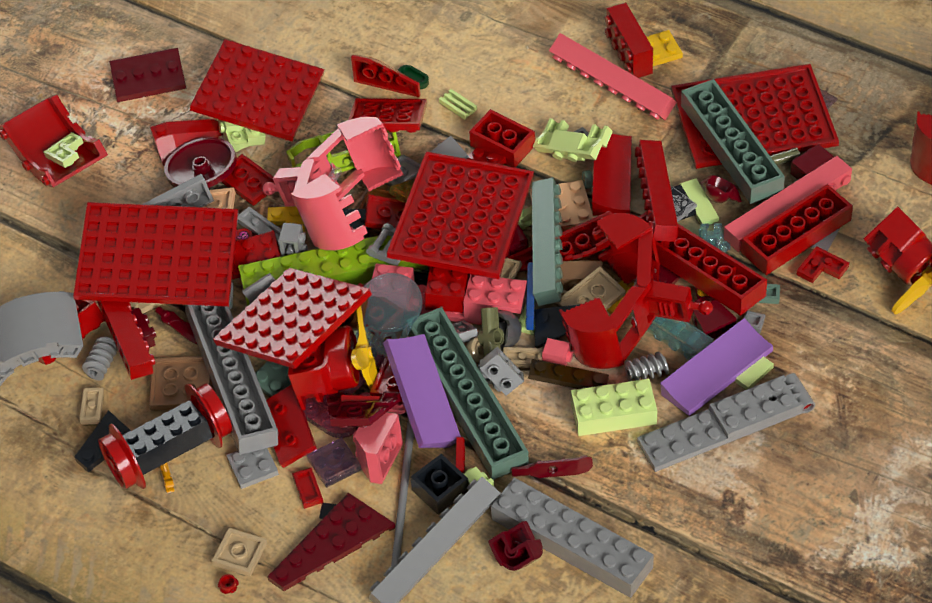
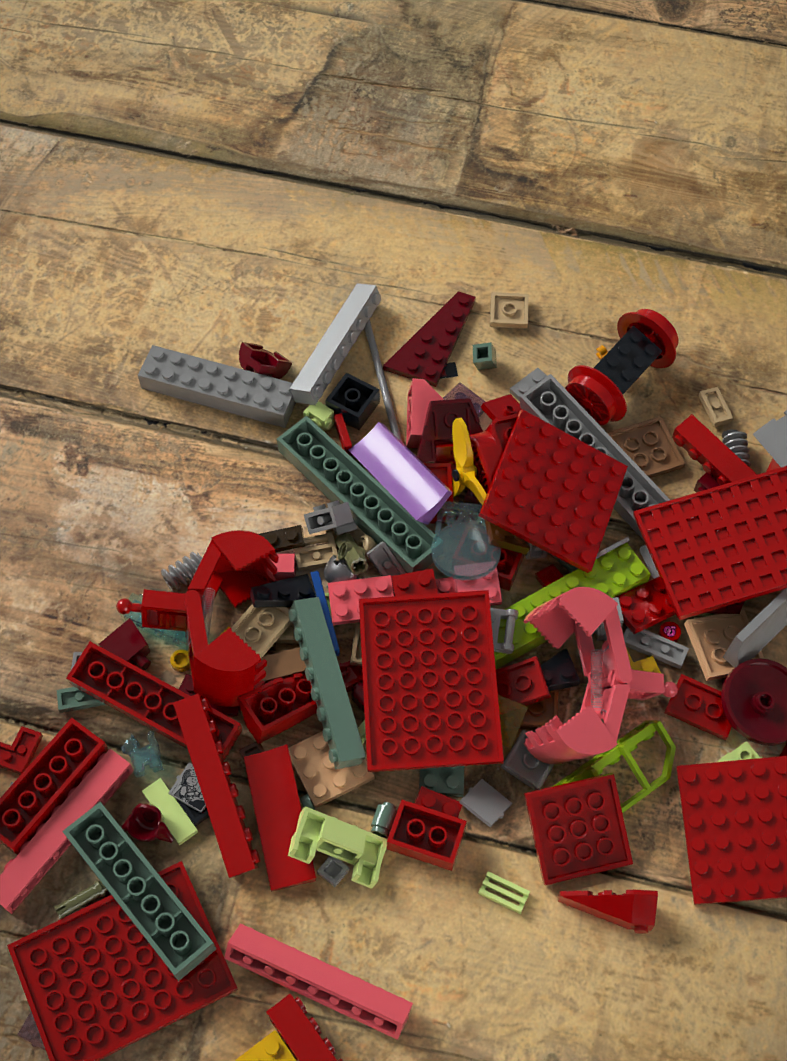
camera: 160 degrees right, 10 degrees up
(90, 454) = (685, 381): black wing -> none
(224, 581) = (506, 280): red plate -> none
(289, 498) = (484, 356): none -> sand green brick
(307, 488) = (476, 382): red tile -> none
(416, 75) = (577, 926): dark green tile -> none
(531, 158) = (383, 819): none -> sand green brick
(562, 467) = (252, 448): dark red piece -> none
(614, 407) = (214, 514): yellowish green brick -> none
(715, 367) = (124, 575): medium lavender arch -> none
(727, 421) = (91, 539): light grey hinge -> none
(754, 373) = (75, 603): yellowish green tile -> none
(809, 161) = (38, 898): dark red brick -> none

